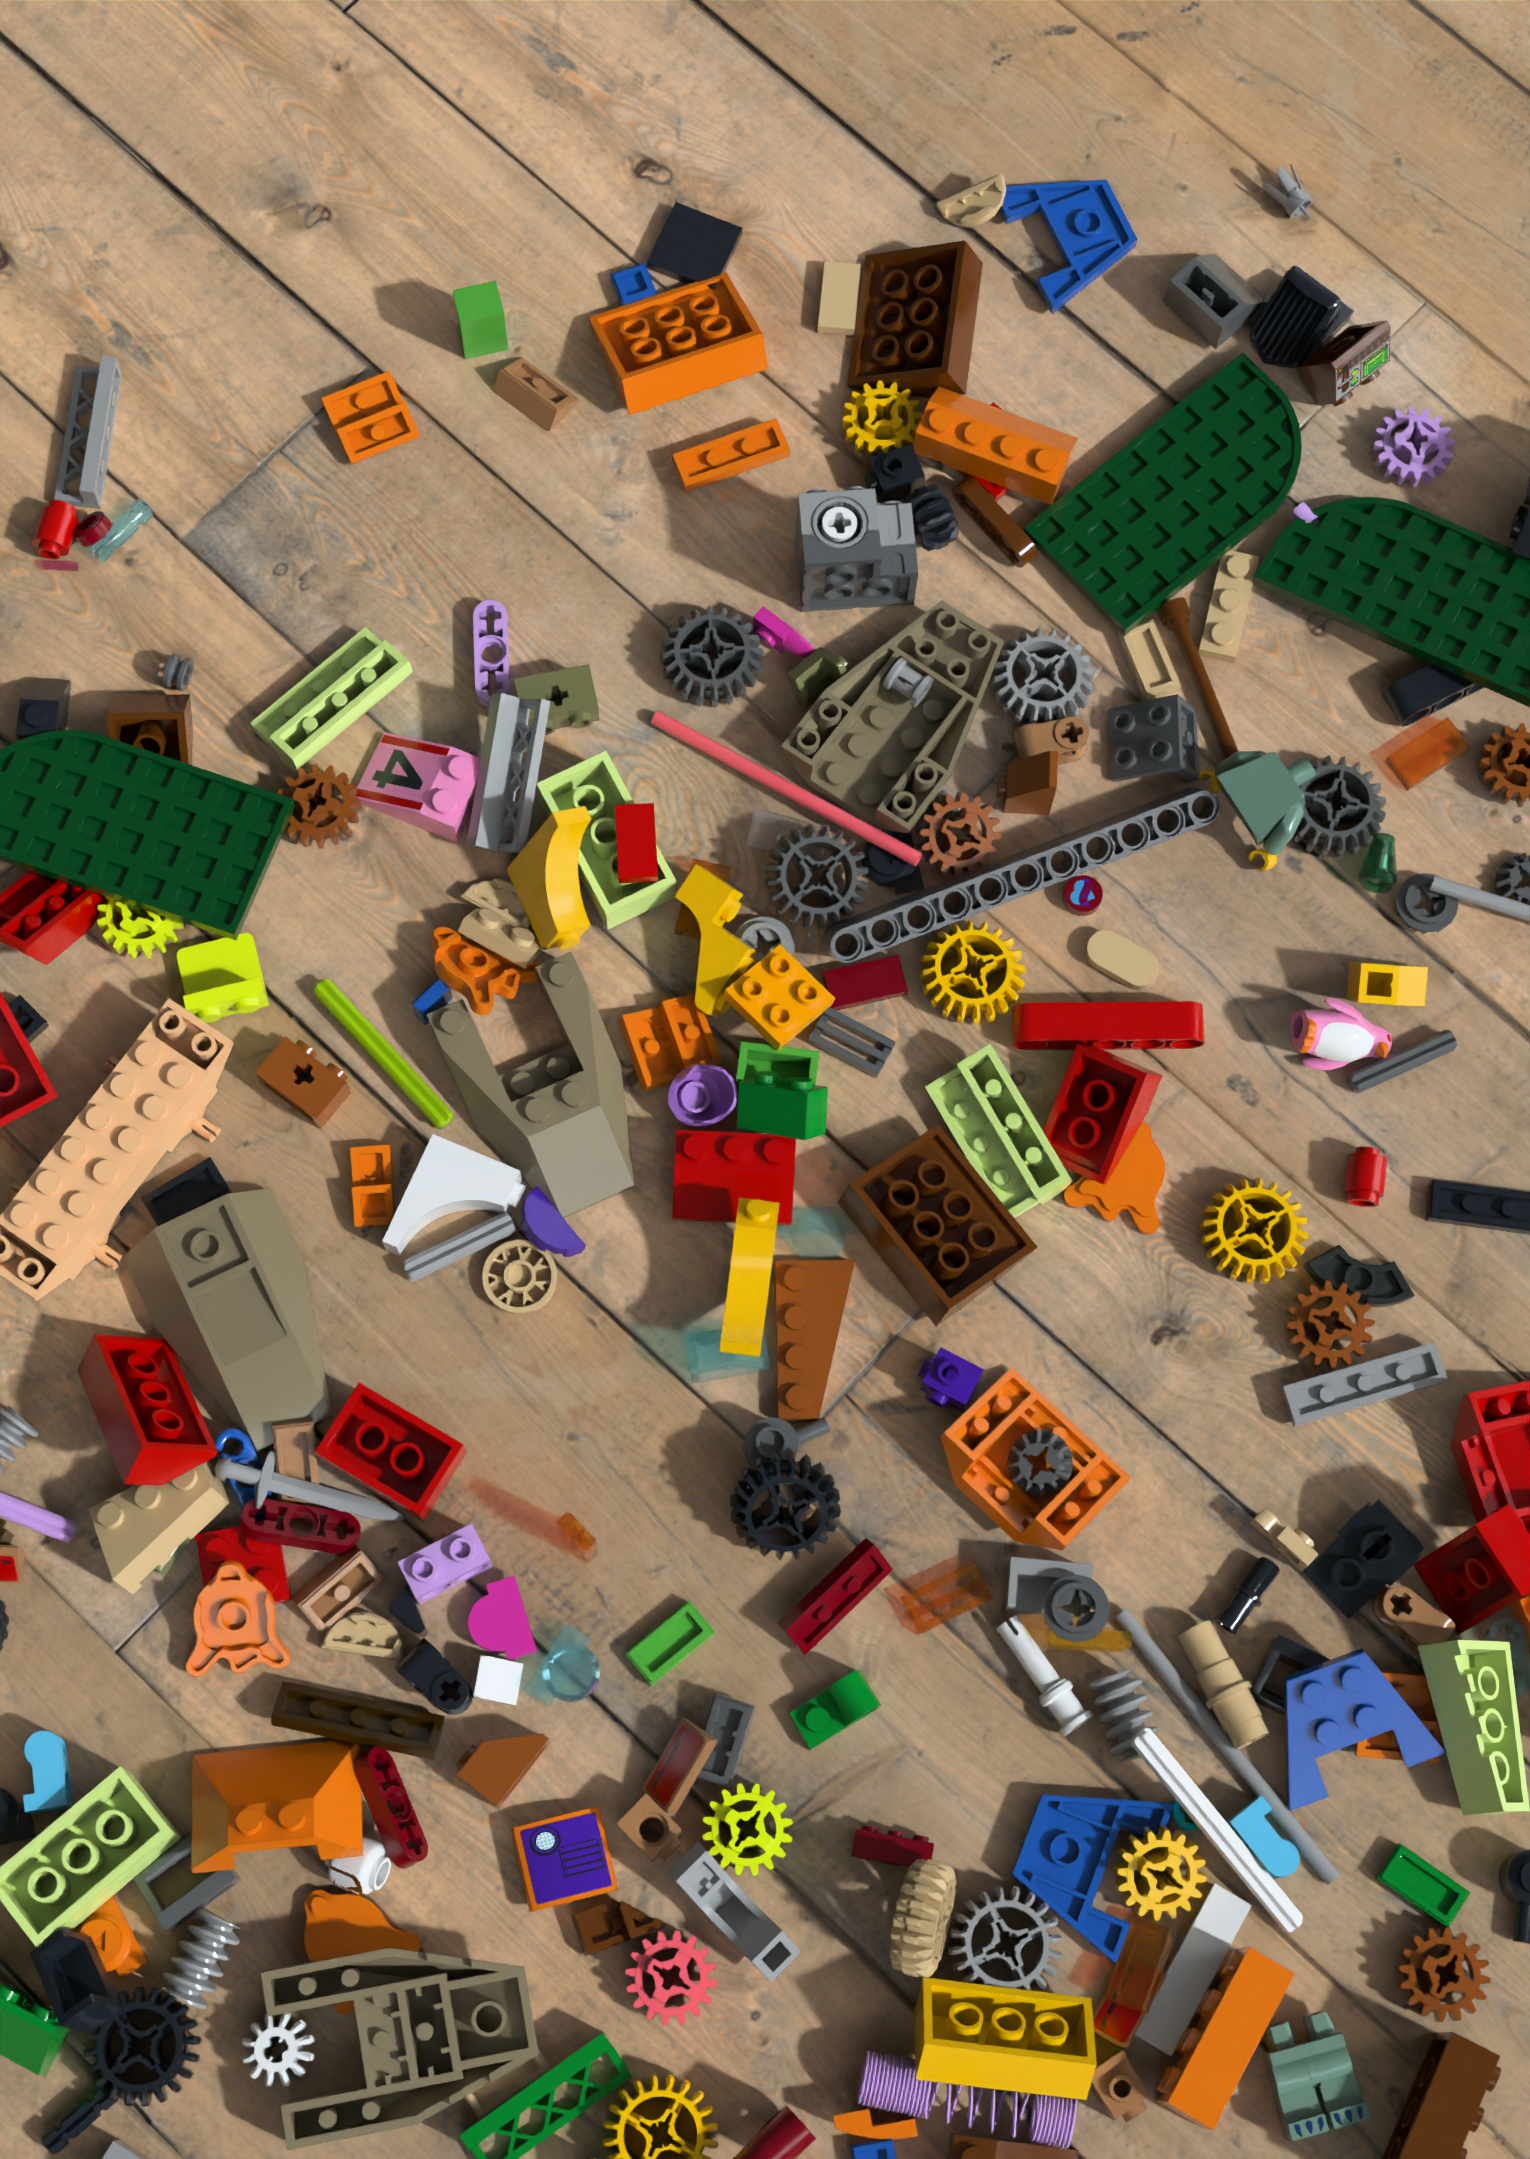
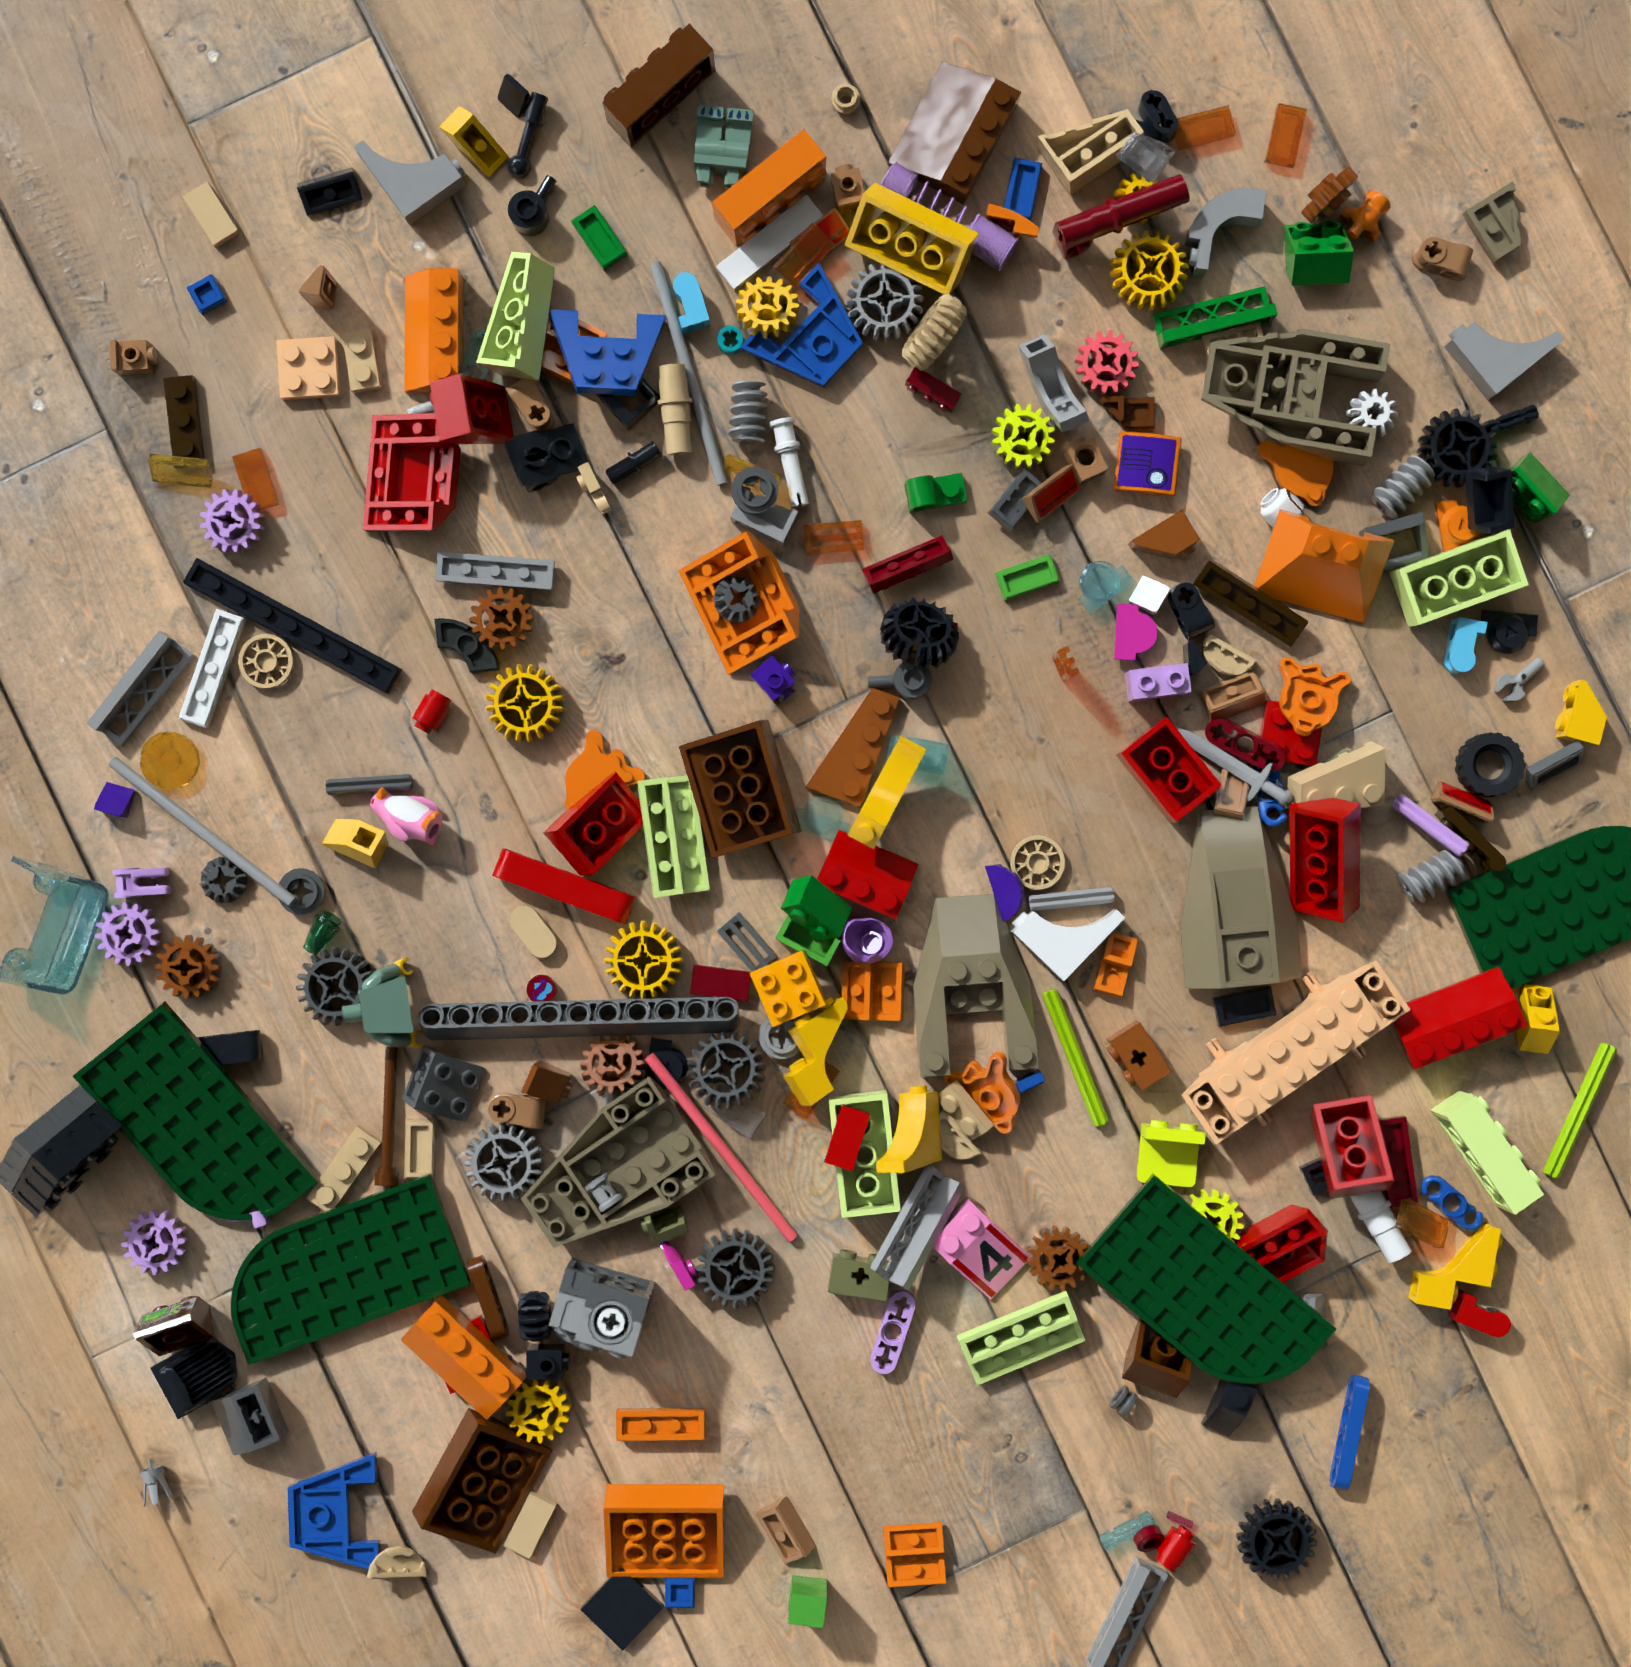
camera: 160 degrees left, 15 degrees up
(403, 1845) = (1256, 547): dark red beam -> none
(1216, 1830) = (720, 317): white axle -> none
(1427, 754) = (250, 1002): clear orange tile -> none
(1452, 1958) = (620, 168): dark orange gear -> none

